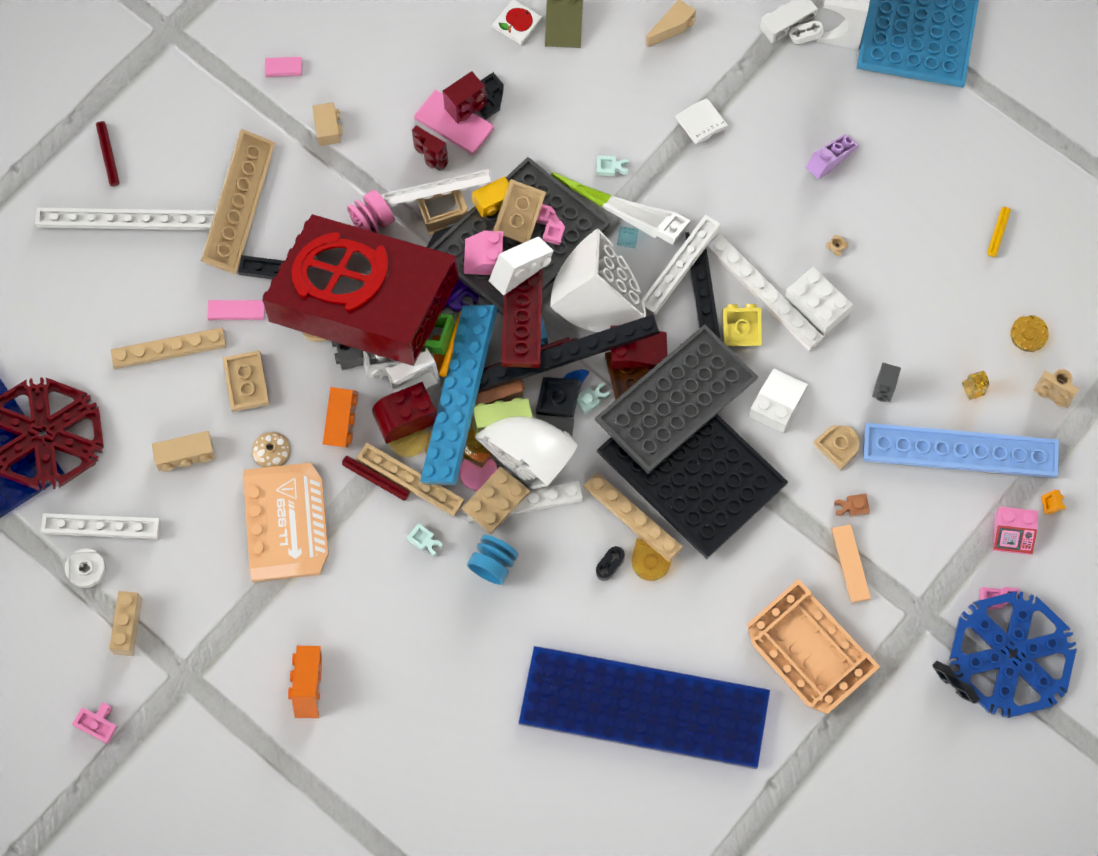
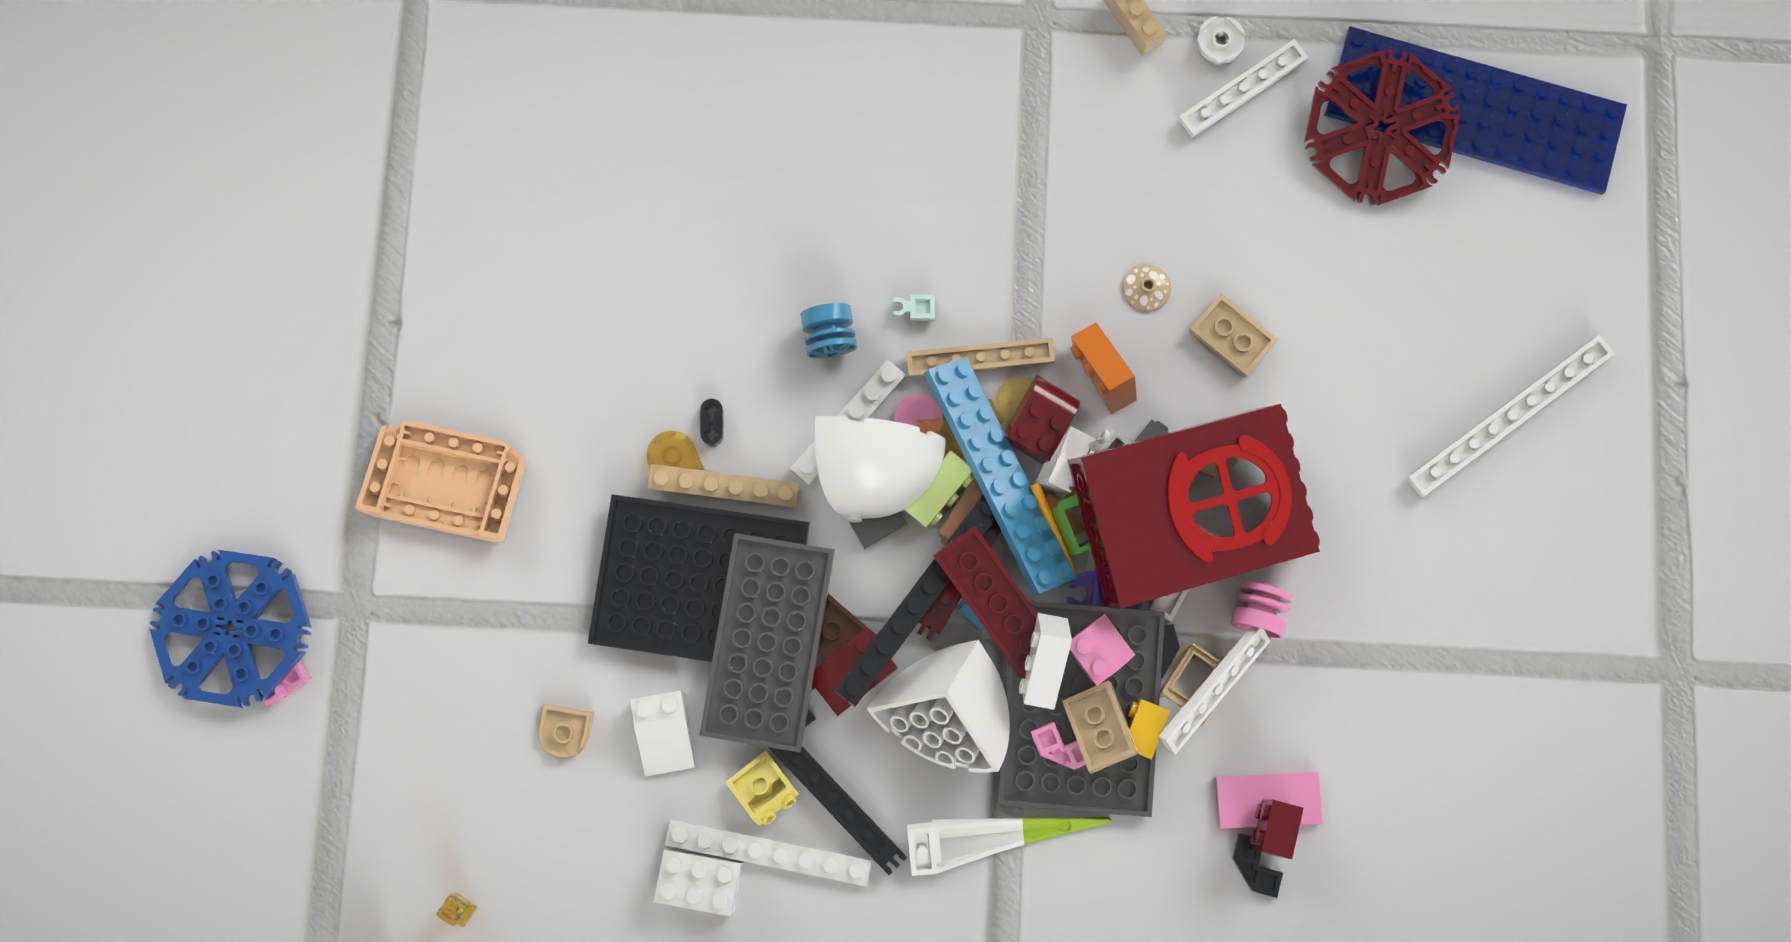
camera: 140 degrees right, 10 degrees up
(107, 153) = (1602, 473): dark red axle -> none
(168, 348) = (1342, 312): tan plate -> none
(183, 451) = (1229, 216): tan brick -> none
(236, 310) = (1313, 402): bright pink tile -> none
(237, 201) = (1416, 520): tan plate -> none
(259, 267) = (1327, 467): black plate -> none
(283, 66) = (1512, 723): bright pink tile -> none
(285, 522) = (1070, 226): light nougat slope -> none
(306, 681) = (918, 88): orange wedge -> none
(326, 124) = (1403, 686): tan brick -> none
(376, 478) = (1018, 334): dark red axle -> none
(432, 147) = (1257, 736): dark red plate -> none
(495, 500) = (875, 389): tan plate -> none
(558, 397) = (897, 556): black plate -> none
(578, 374) = (896, 595): blue tile -> none
(589, 399) = (865, 582): light aqua plate -> none
(608, 165) = (1055, 876): light aqua plate -> none
(627, 237) = (967, 804): clear light blue tile -> none
(645, 707) = (569, 303): clear blue plate -> none
(680, 264) = (881, 810): white plate -> none
(850, 563) = (463, 605): light nougat tile -> none
(855, 504) = (501, 673): nougat plate -> none
(886, 382) = (554, 834): dark grey brick -> none
(961, 450) = (425, 821): light blue plate -> none
(962, 689) = (278, 553): black tile -> none
(1015, 530) = (309, 769): bright pink slope -> none
(1052, 502) = (287, 831): light orange tile -> none

